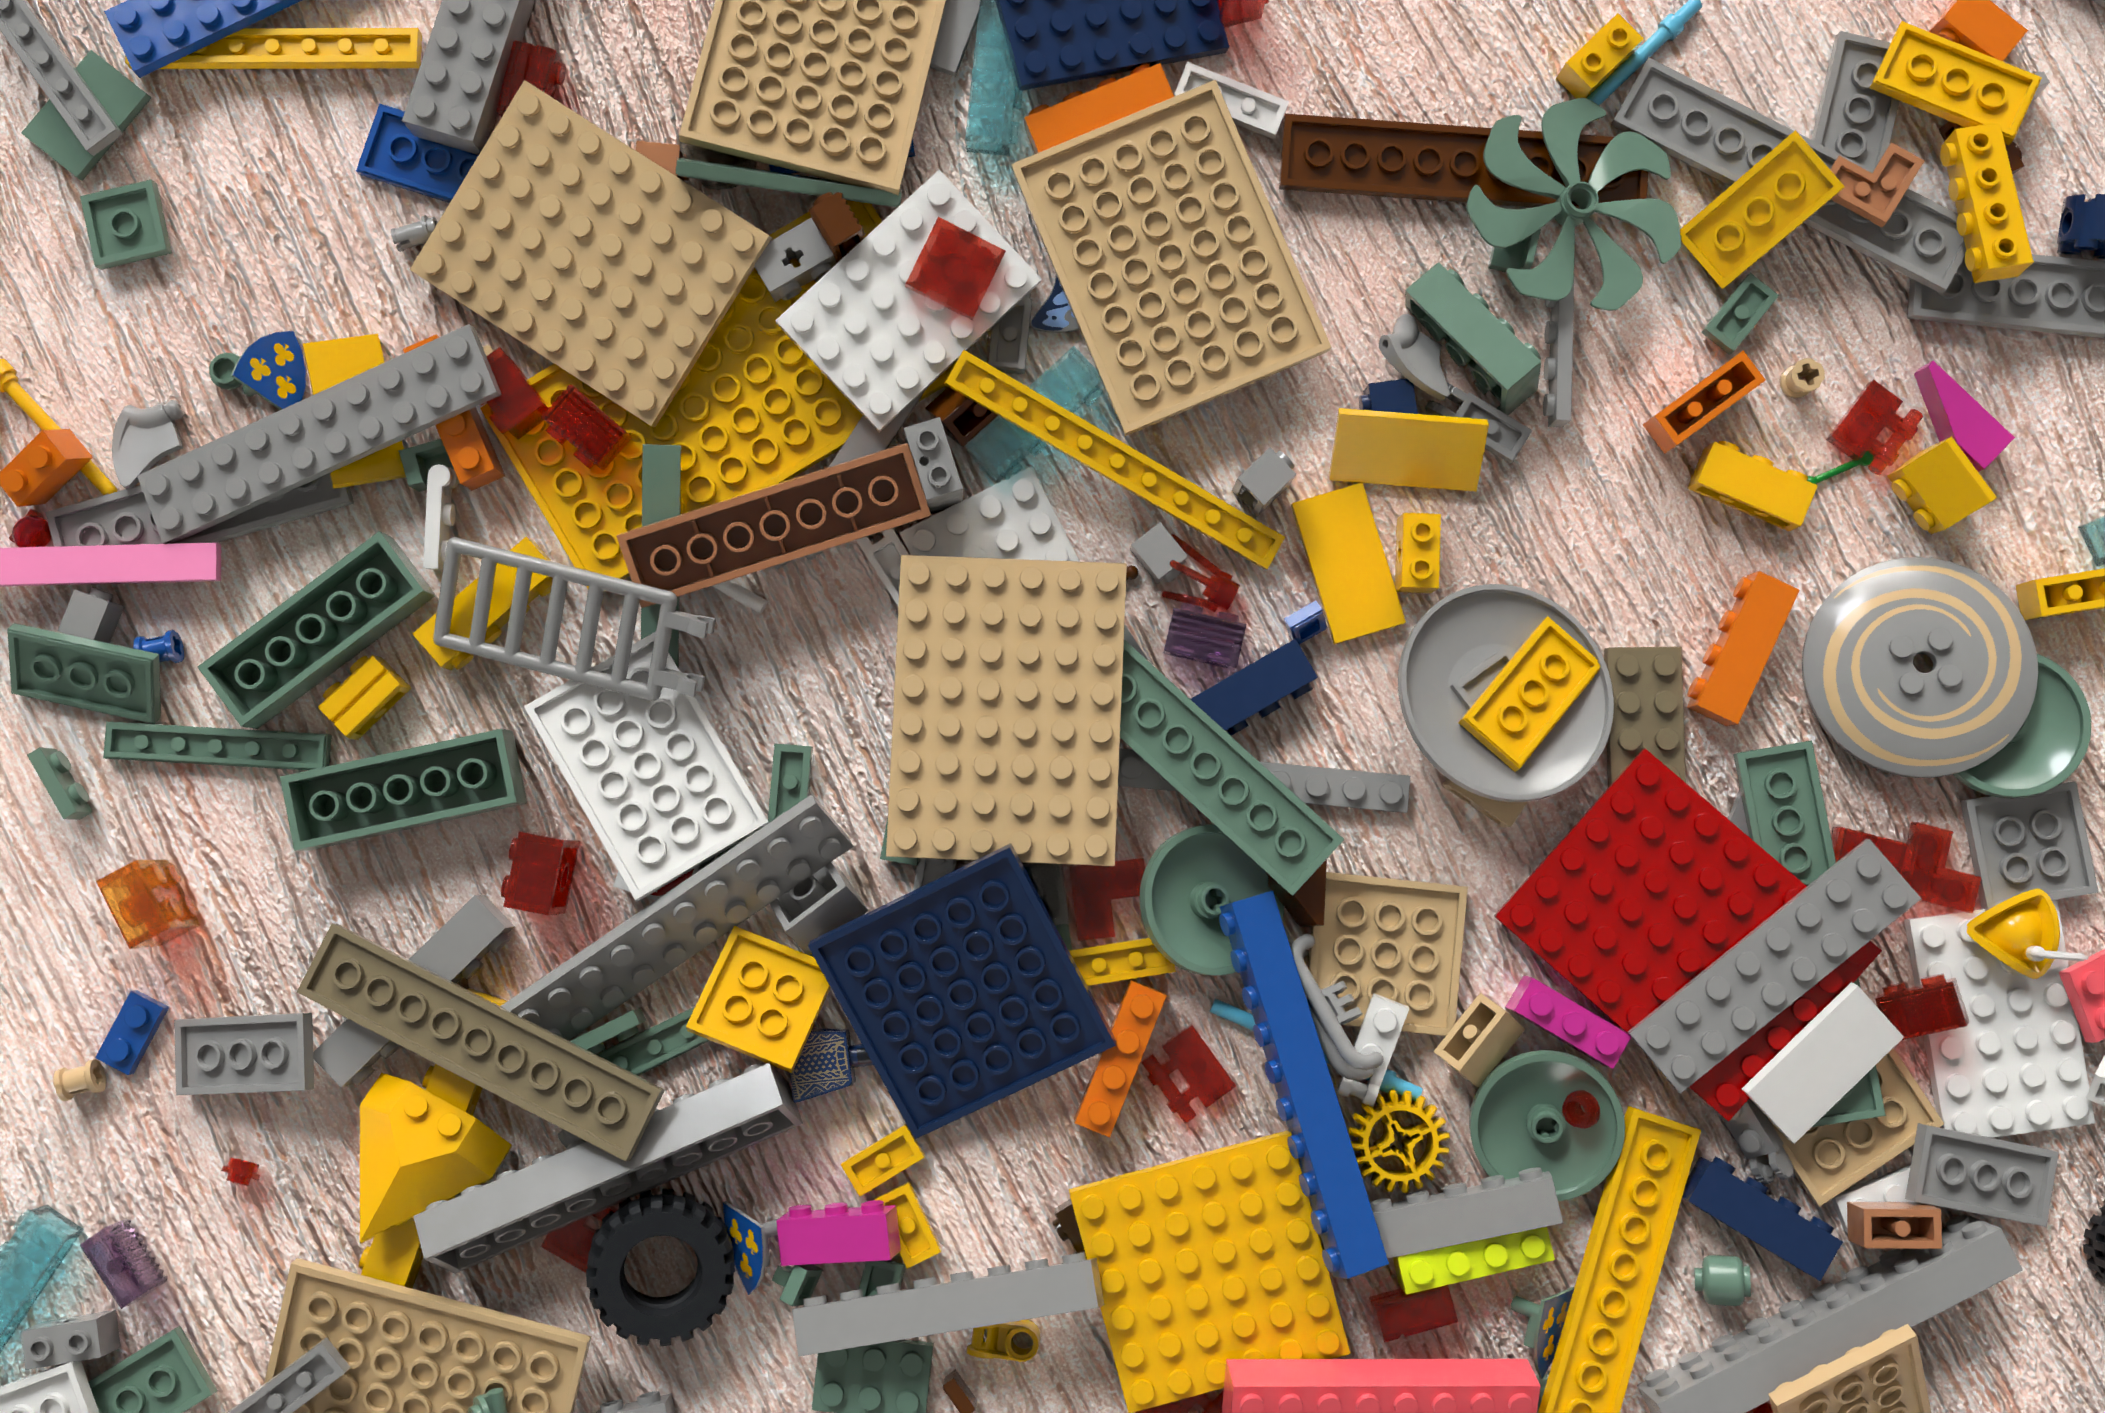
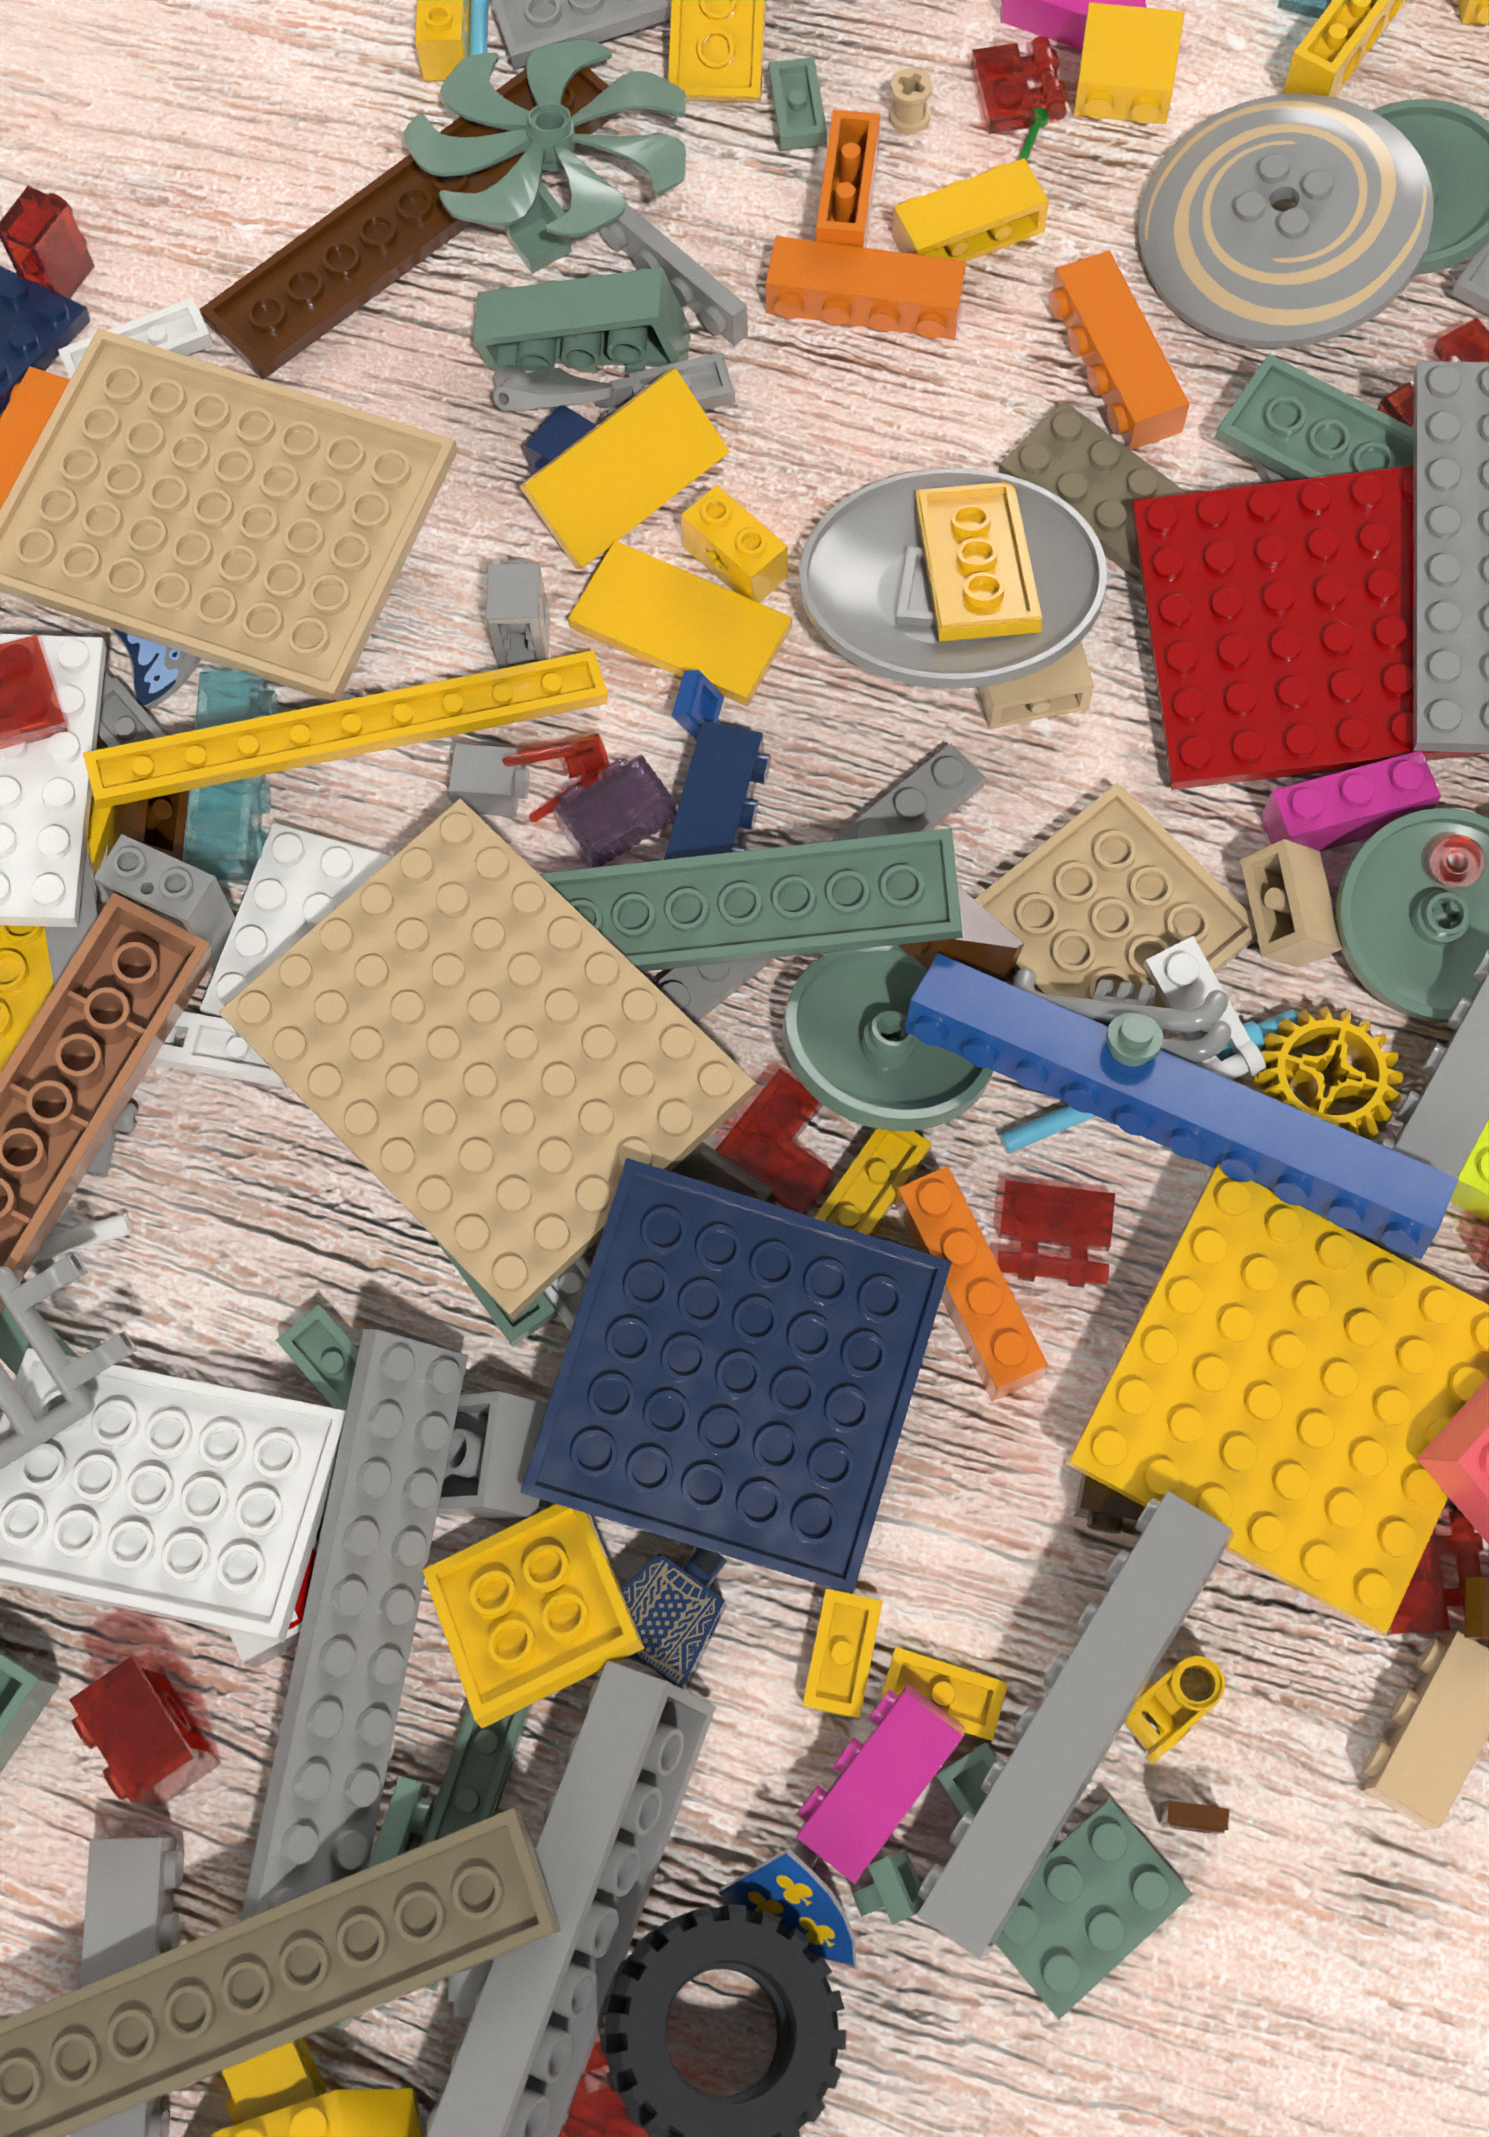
camera: 45 degrees left, 15 degrees down
(1314, 1037) = (1134, 1038): none -> sand green plate
(1649, 470) = (865, 287): none -> orange brick

